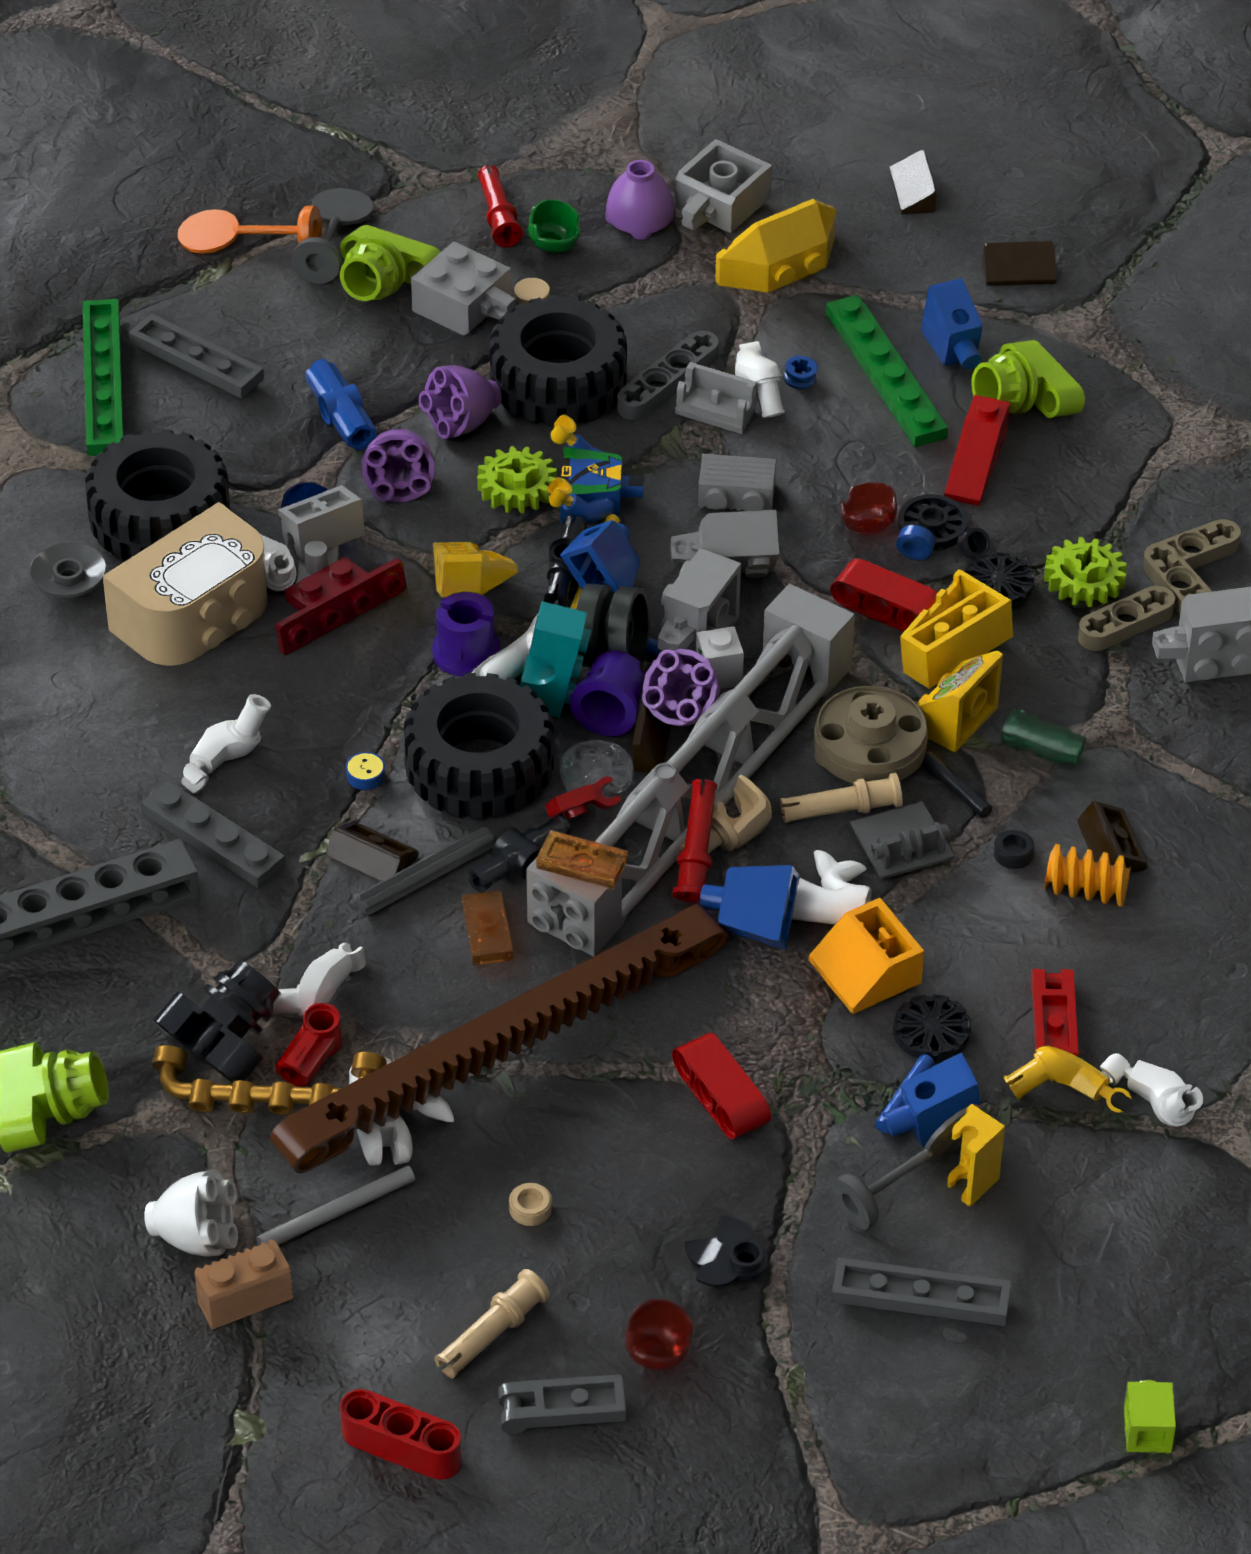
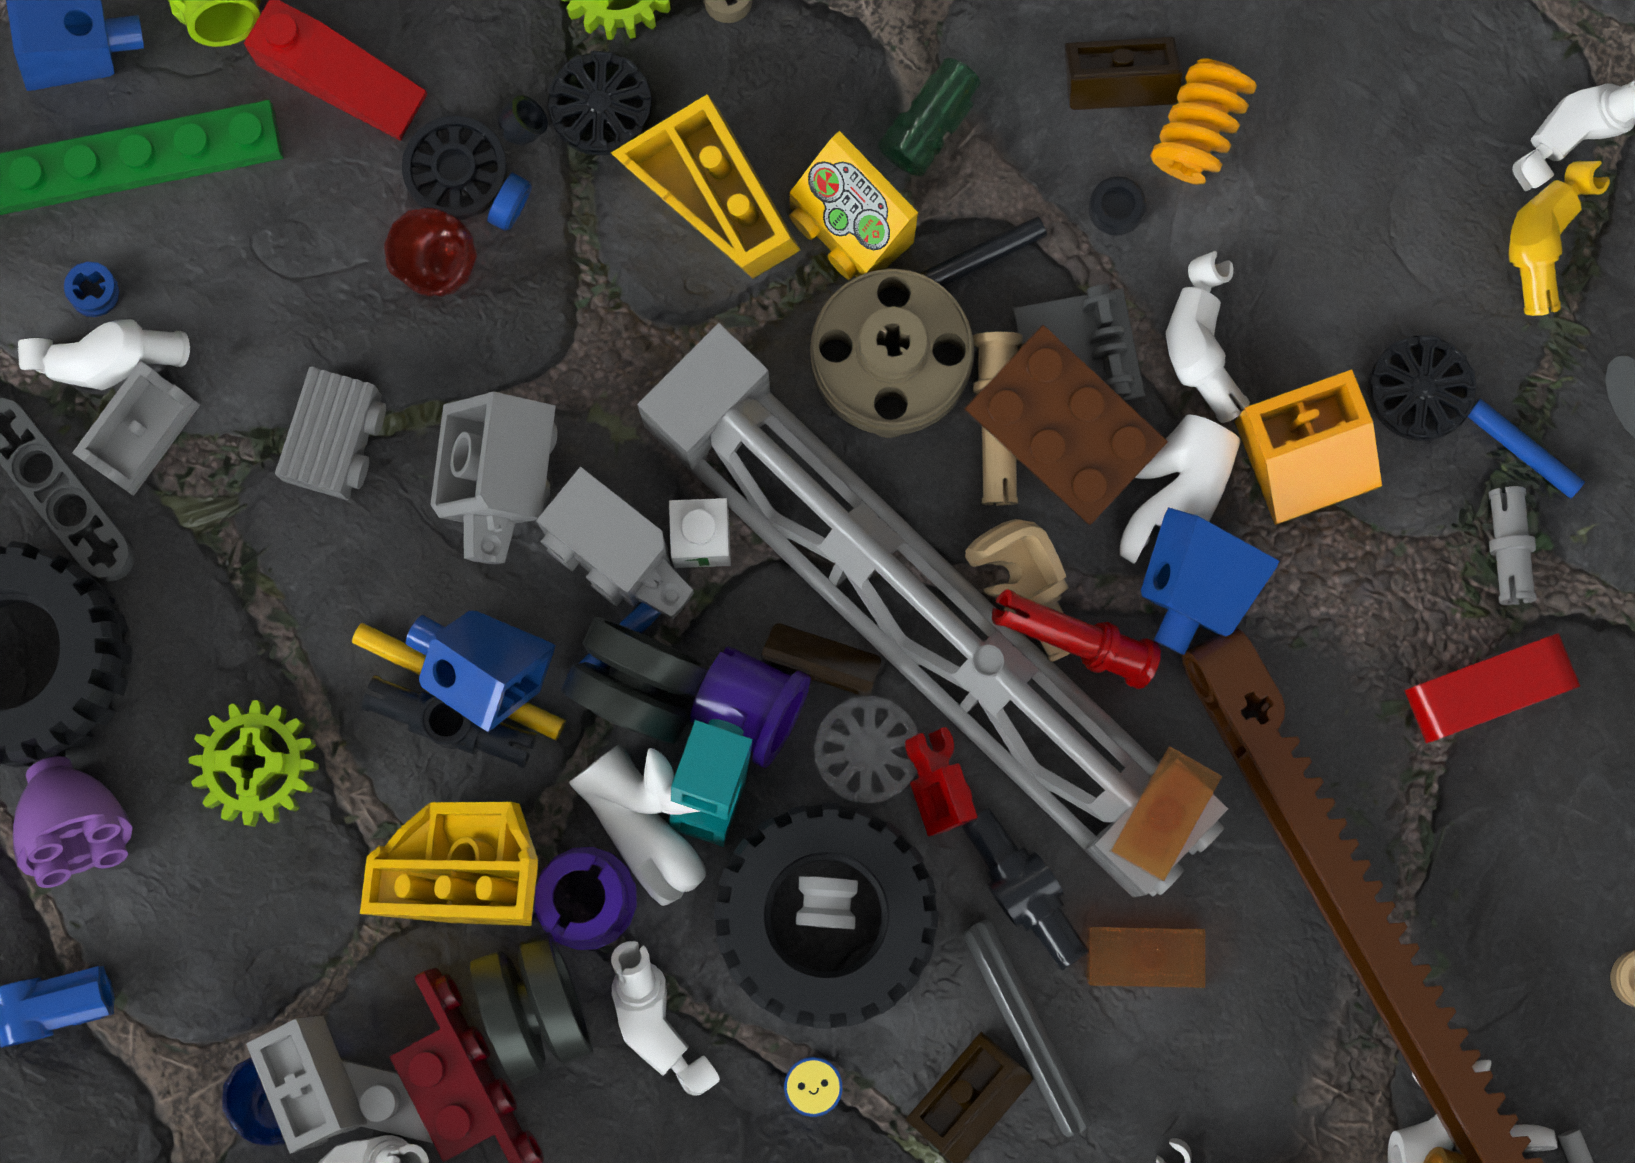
camera: 80 degrees left, 35 degrees up
(389, 610) = (521, 1010): none -> pearl dark grey wheel
(394, 475) = (190, 941): medium lavender piece -> none
(395, 680) = (641, 1012): none -> white arm
(485, 710) = (826, 902): none -> light grey wheel
(590, 478) = (285, 653): torso -> none
(671, 681) = (790, 601): medium lavender piece -> none
(829, 1087) = (1512, 545): none -> light grey pin
(843, 820) = (1065, 425): none -> reddish brown plate
(881, 594) = (611, 267): red beam -> none
(931, 889) = (1192, 342): none -> white arm
(933, 1098) = (1586, 395): blue torso -> none
(1054, 1010) = (1431, 223): red plate -> none

